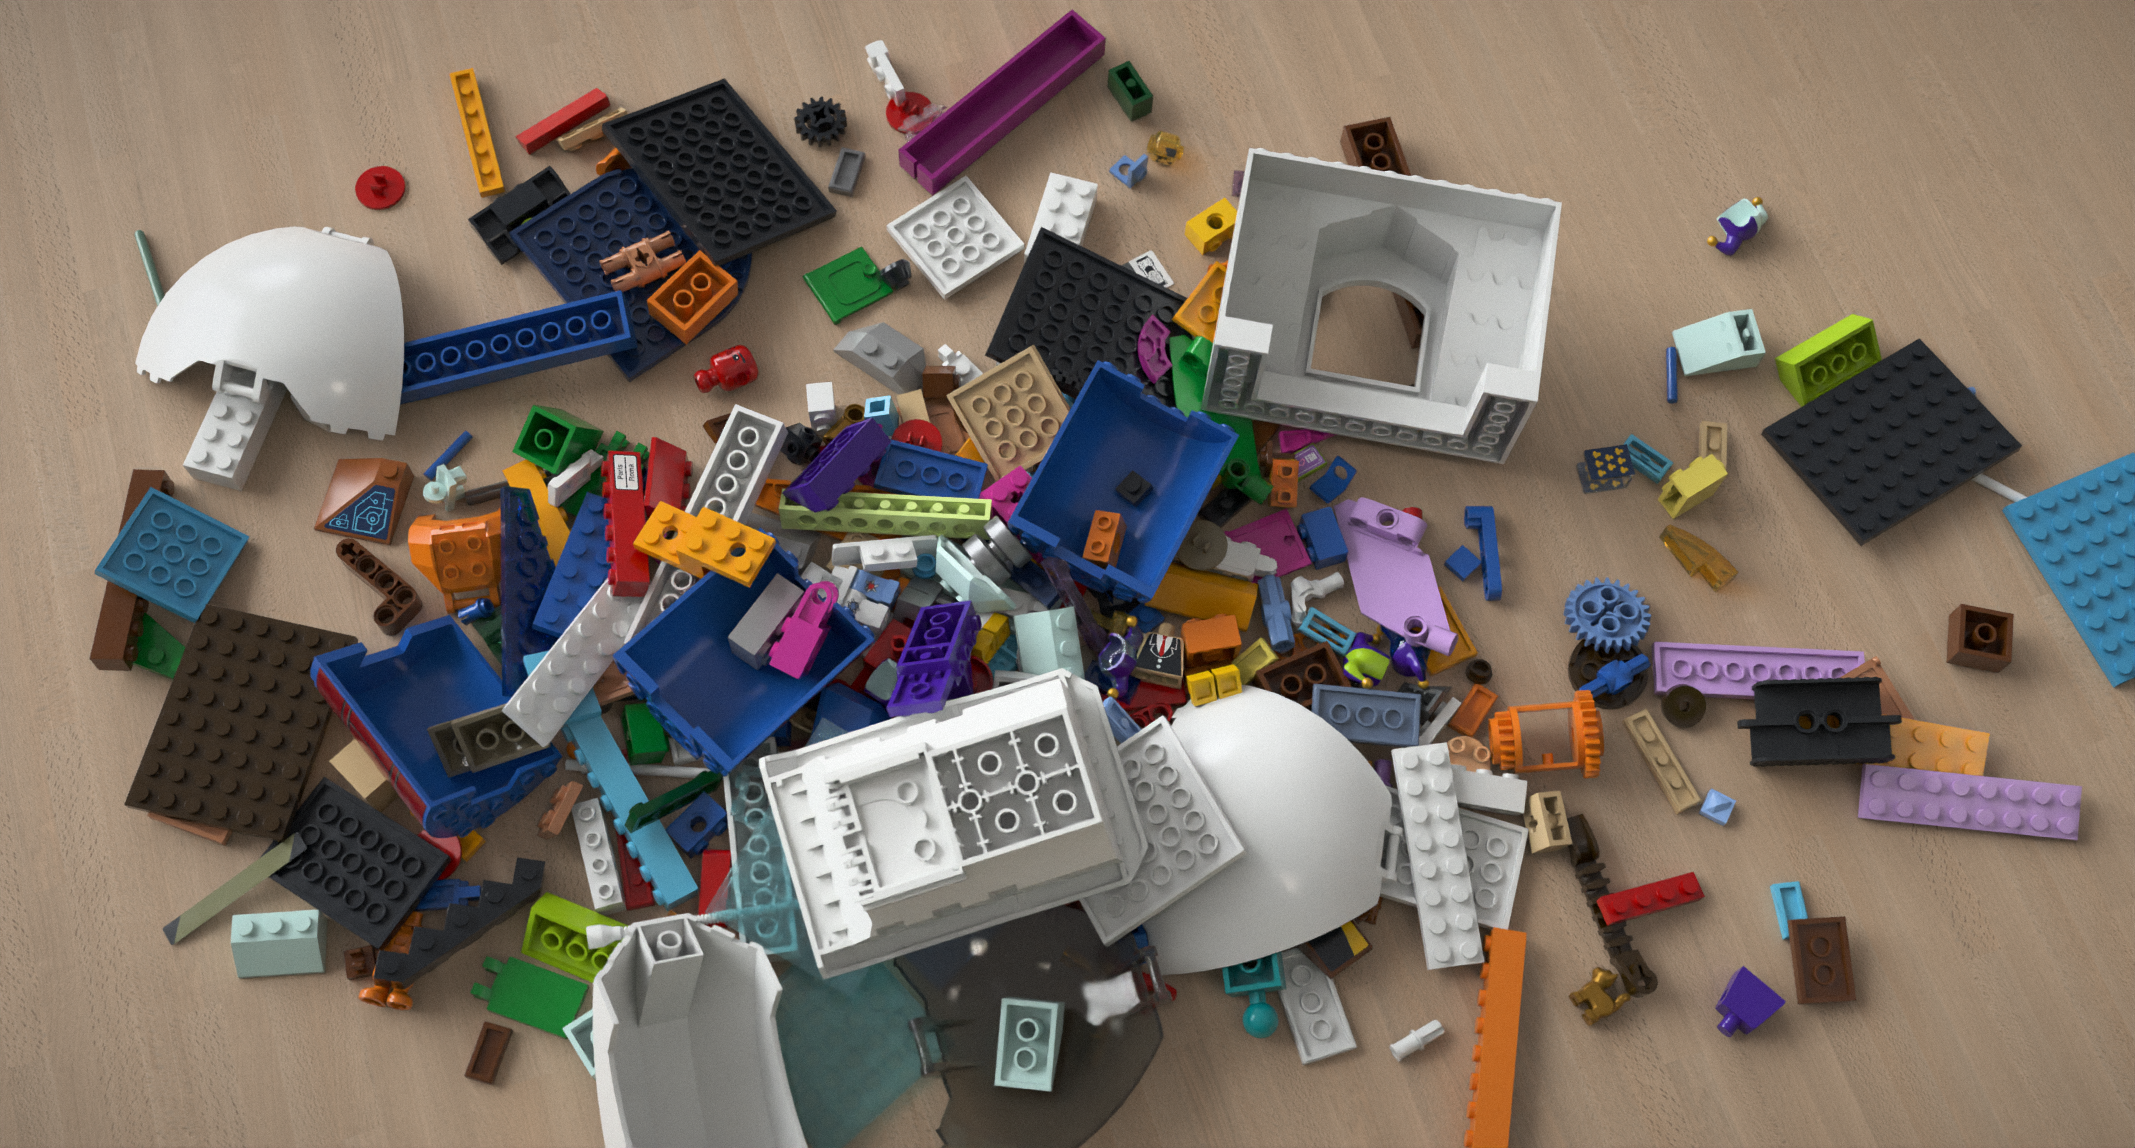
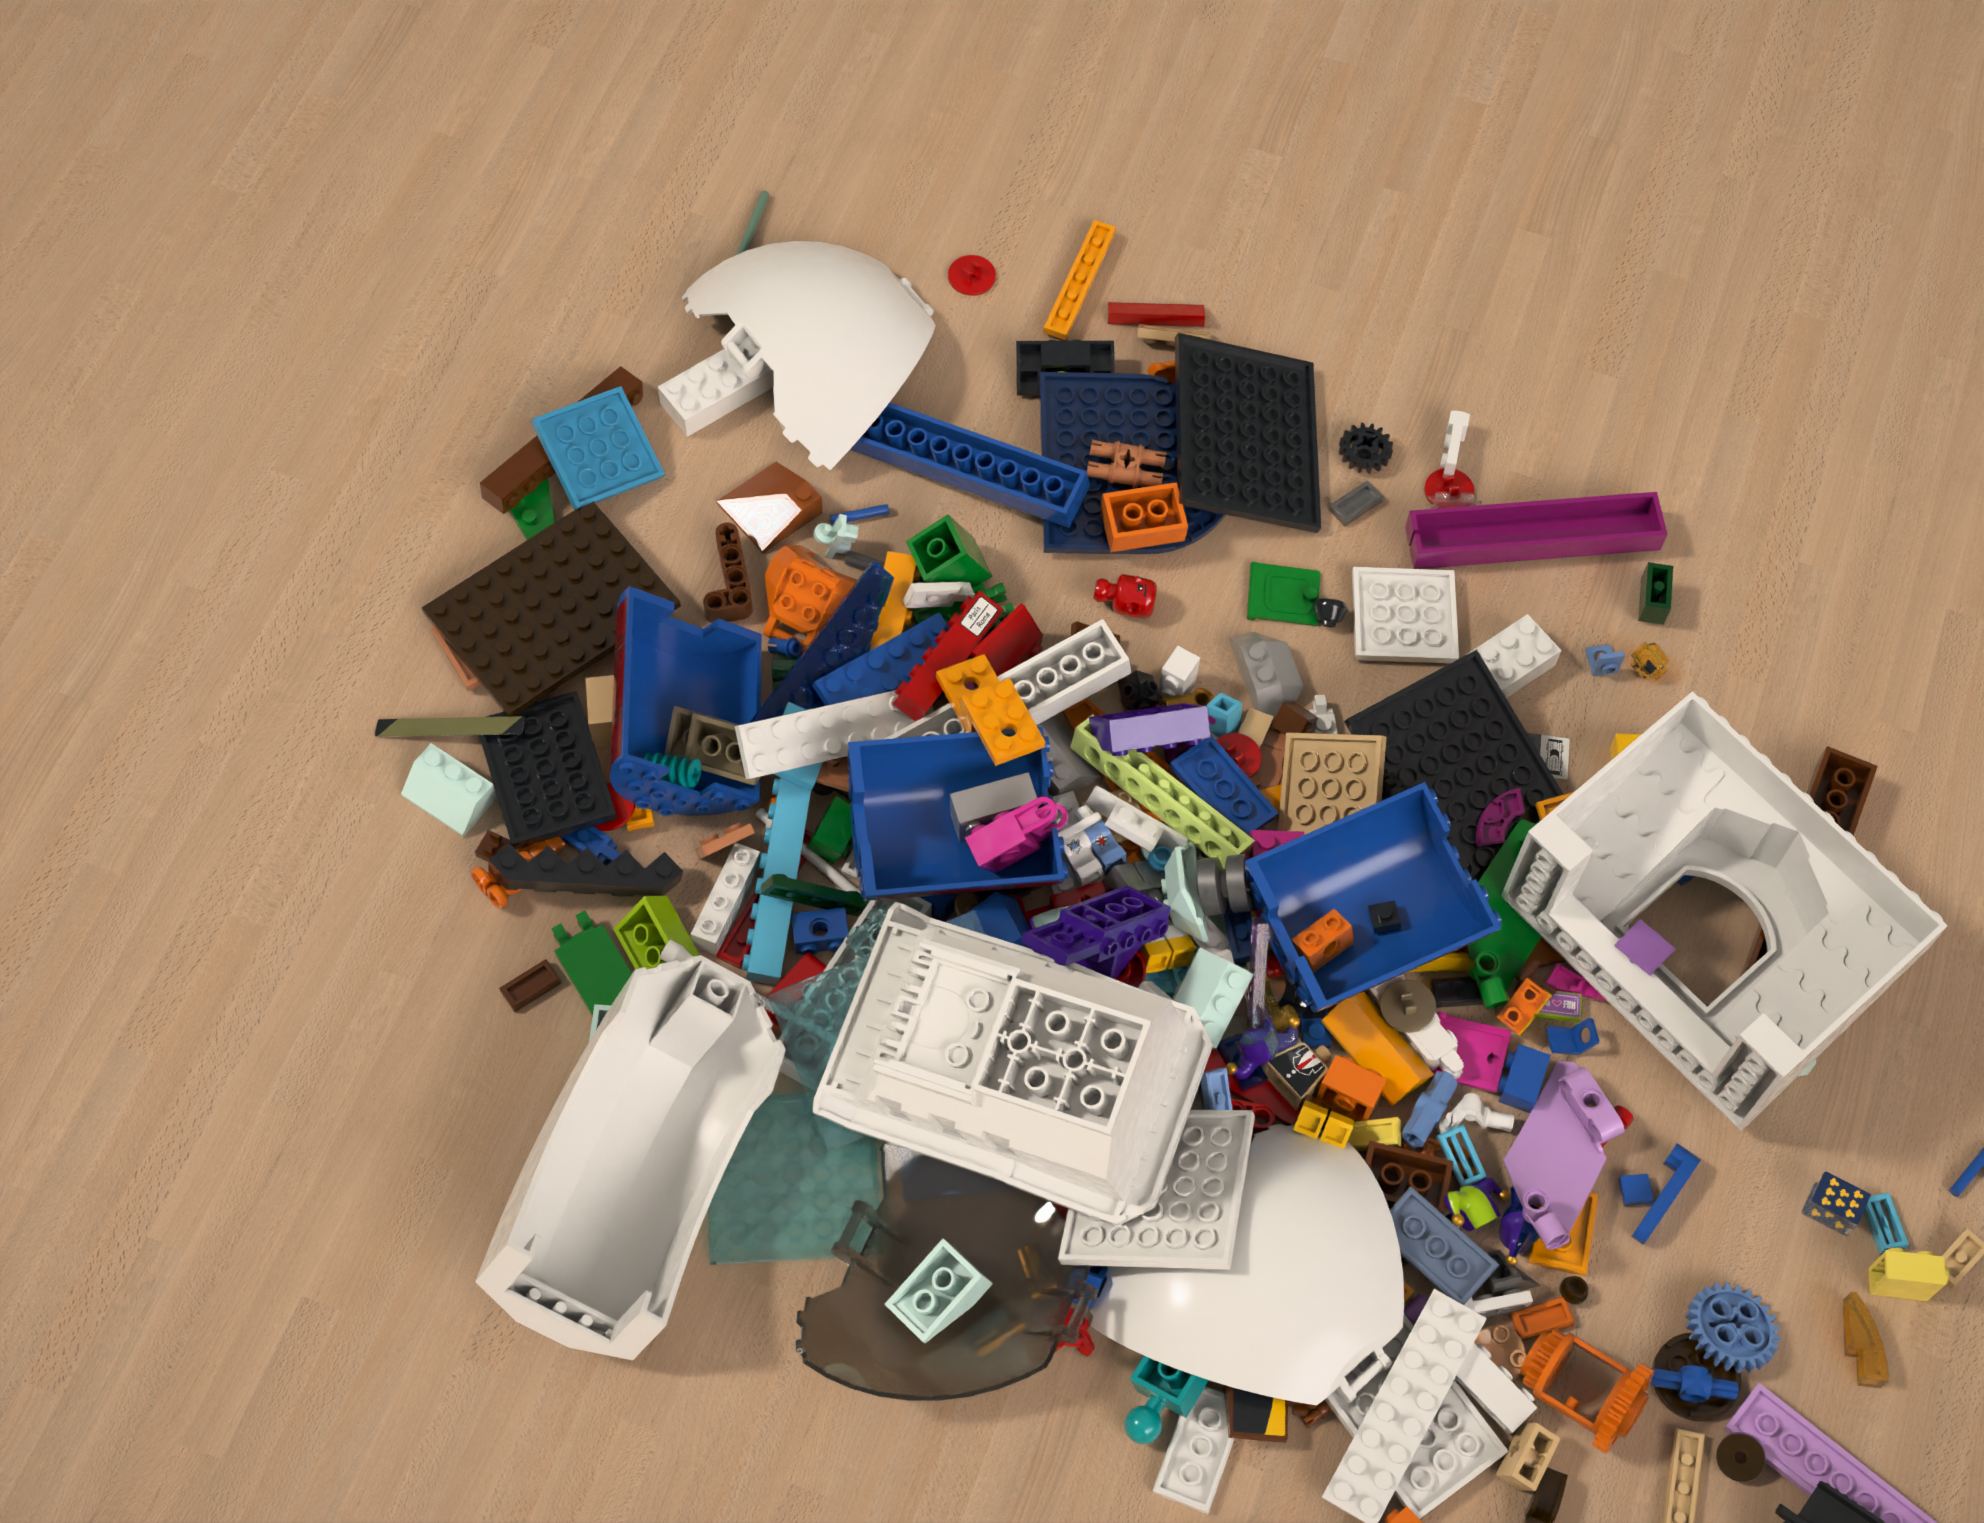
camera: 40 degrees right, 5 degrees down
(484, 781) = (682, 770): none -> teal piece
(1343, 373) = (1645, 947): none -> medium lavender piece

